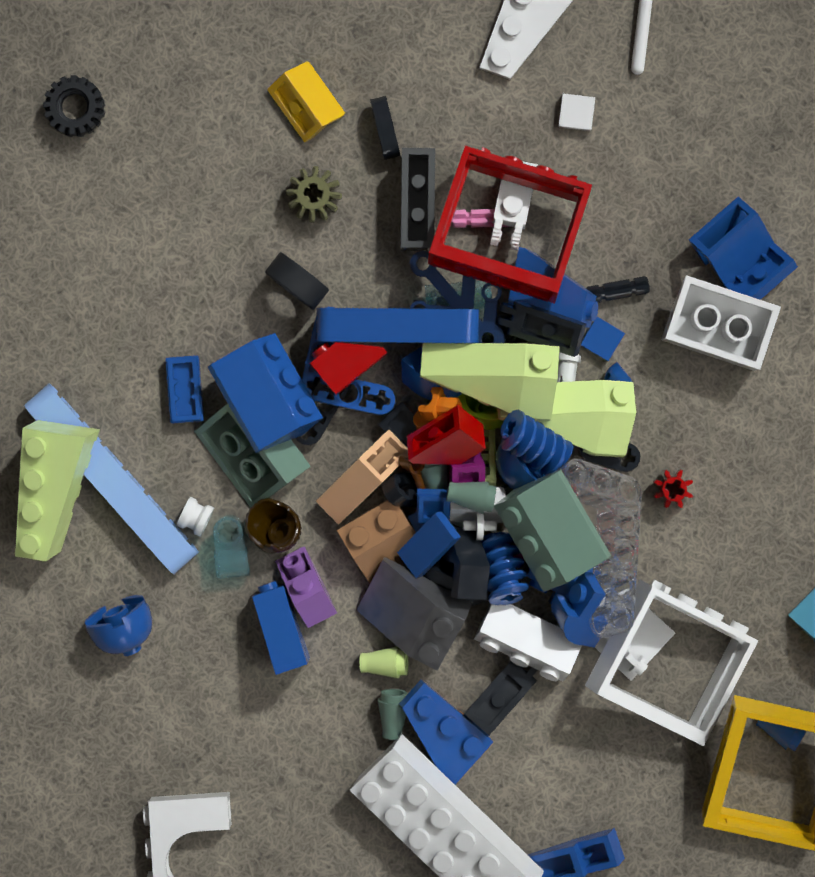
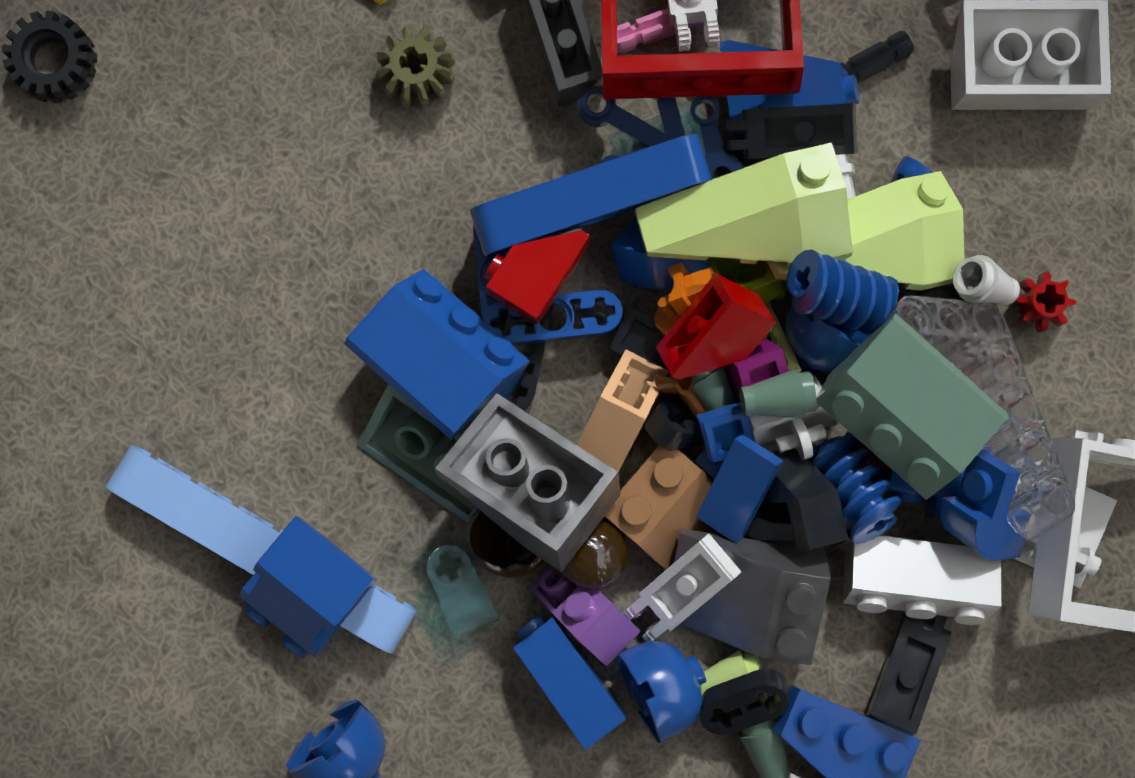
camera: 25 degrees left, 5 degrees down
(49, 483) = (172, 586): yellowish green wedge -> none
(132, 515) = (305, 588): none -> blue piece
(184, 389) = (324, 390): blue plate -> none
(195, 516) = (396, 562): white wheel -> none
(297, 280) = (430, 186): black tyre -> none
(297, 496) = (531, 481): none -> flat silver slope
(320, 552) = (598, 559): none -> dark brown hair
(339, 652) = (663, 686): none -> blue cylinder
(373, 595) = (684, 586): none -> white hinge
(387, 679) = (744, 702): none -> black beam
(602, 339) = (876, 133): blue tile -> none
(634, 464) = (983, 281): none -> white cone

